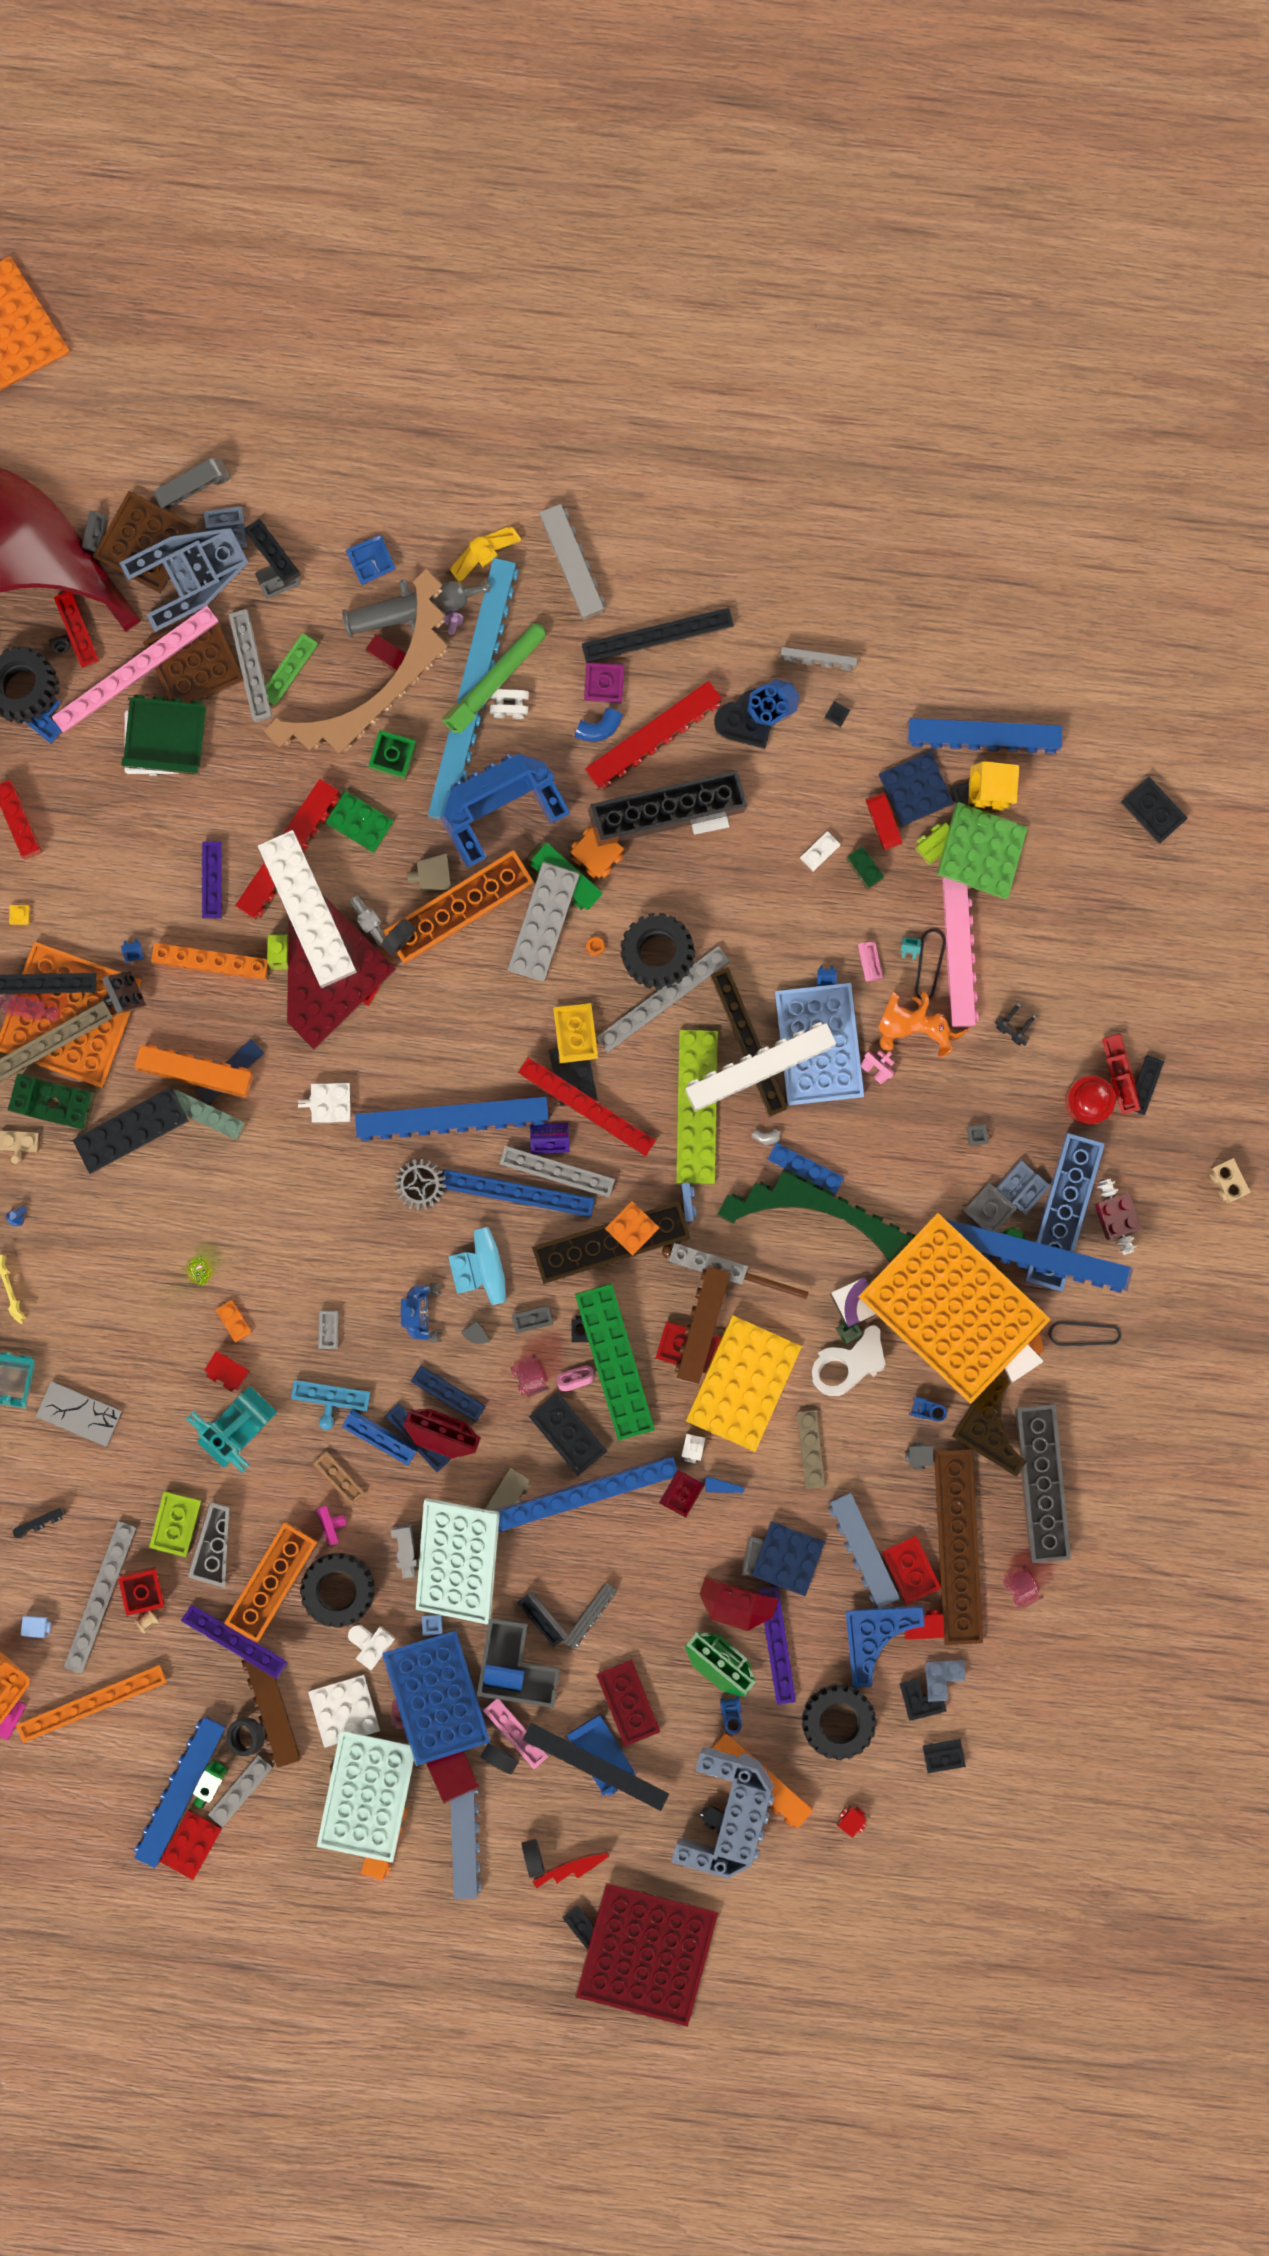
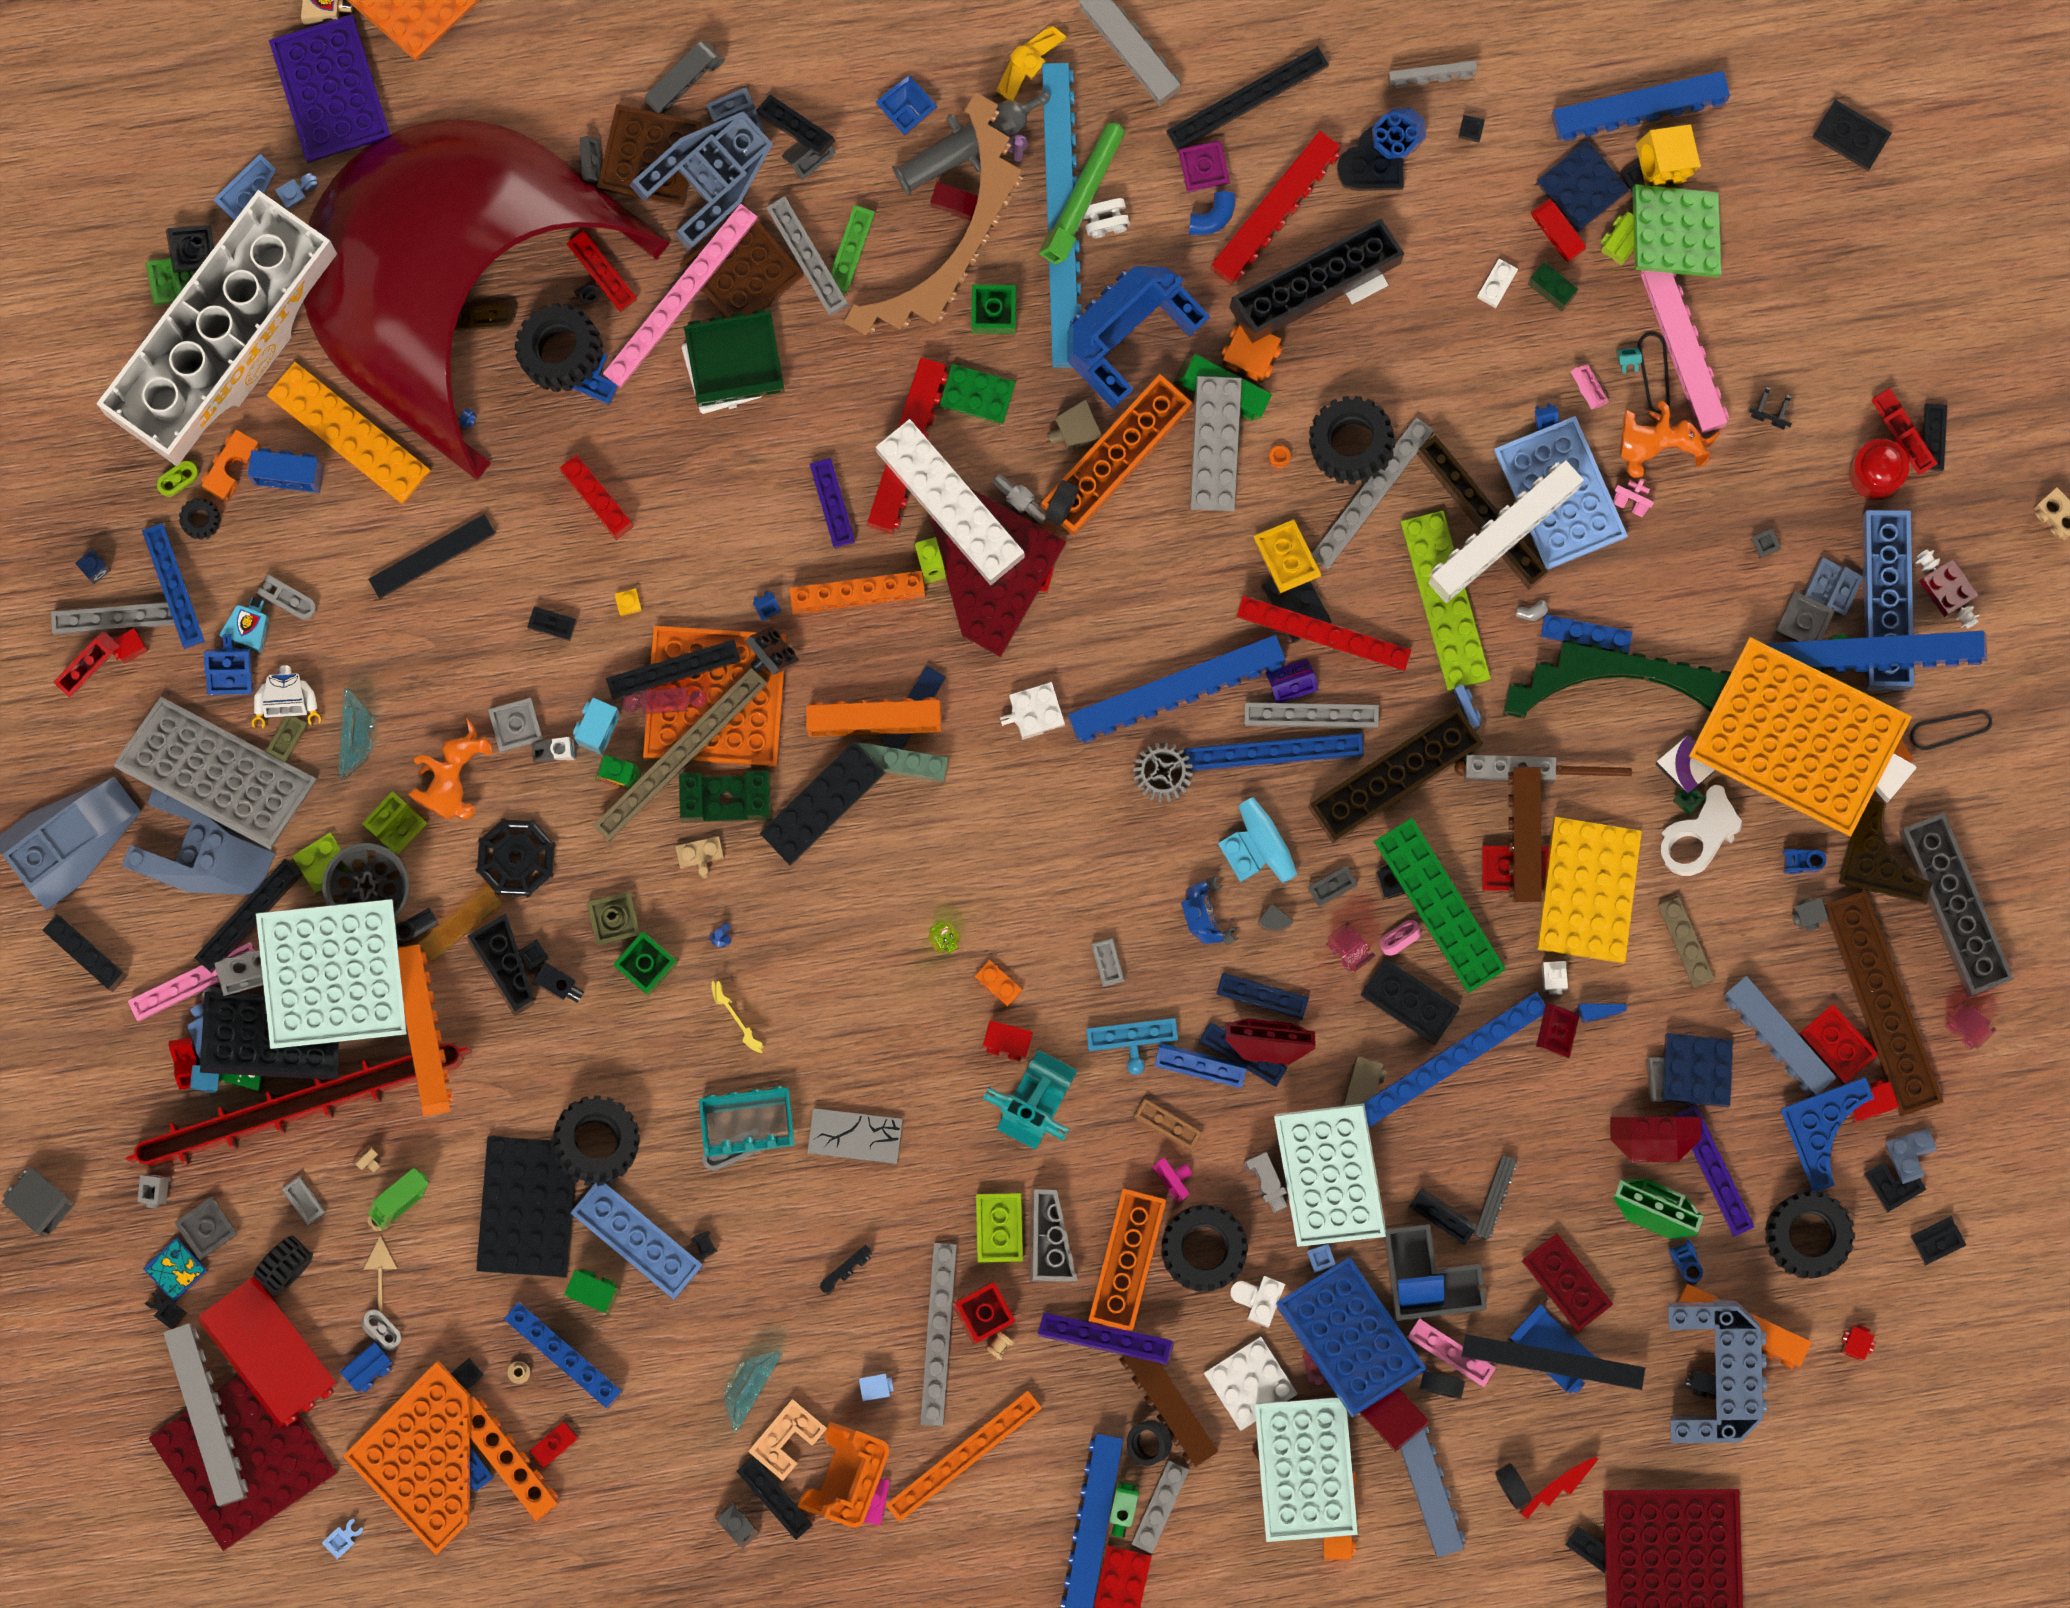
camera: 10 degrees left, 5 degrees down
(632, 1228) = (1415, 750): orange plate -> none

